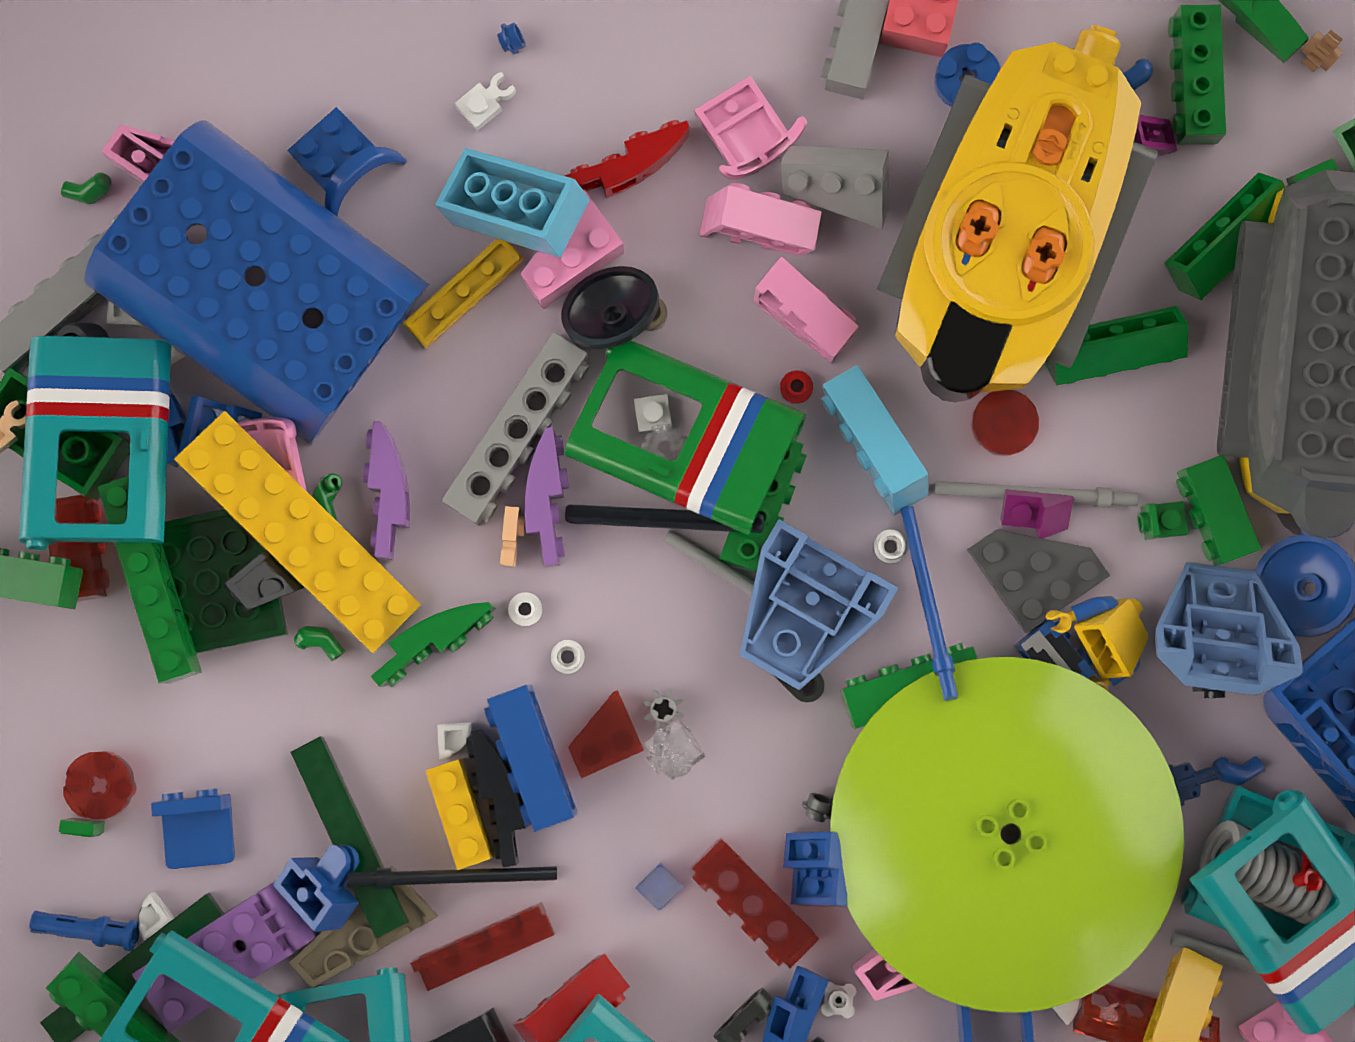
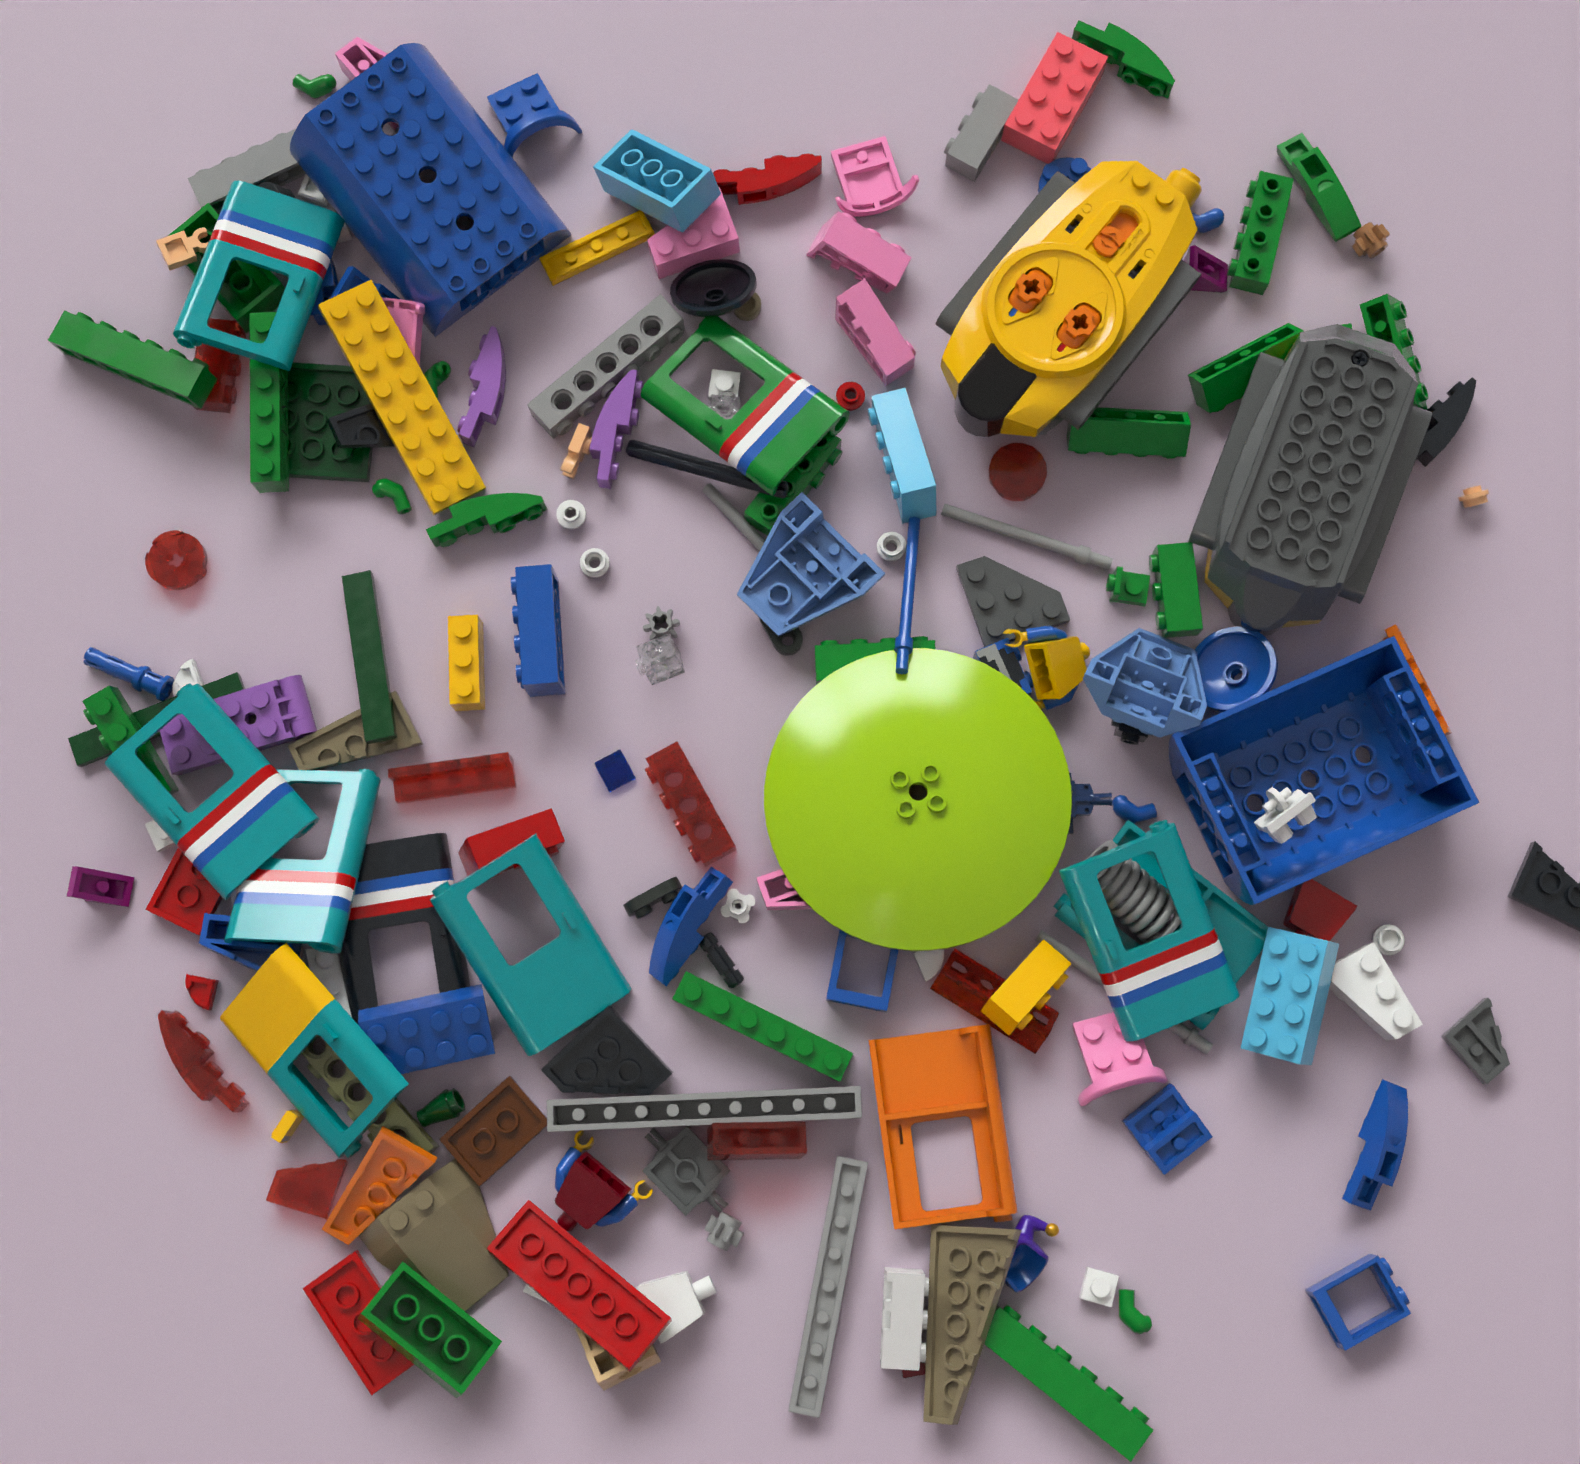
camera: 15 degrees right, 5 degrees down
(81, 827) = (151, 589): green tile -> none
(196, 828) = (245, 615): blue bracket -> none
(318, 889) = (331, 687): blue brick -> none
(385, 878) = (387, 693): black bar -> none
(453, 738) = (480, 602): white tile -> none
(482, 104) = (657, 103): white plate -> none
(493, 782) = (500, 648): black slope -> none
(511, 38) = (697, 56): blue plate -> none
(605, 738) = (606, 637): clear red wing -> none
(817, 869) = (751, 788): blue slope -> none
(818, 807) = (765, 741): dark grey plate -> none
(840, 180) = (935, 237): light grey wedge -> none
(1037, 510) = (1023, 549): magenta slope -> none
(1307, 876) = (1163, 897): red hand -> none

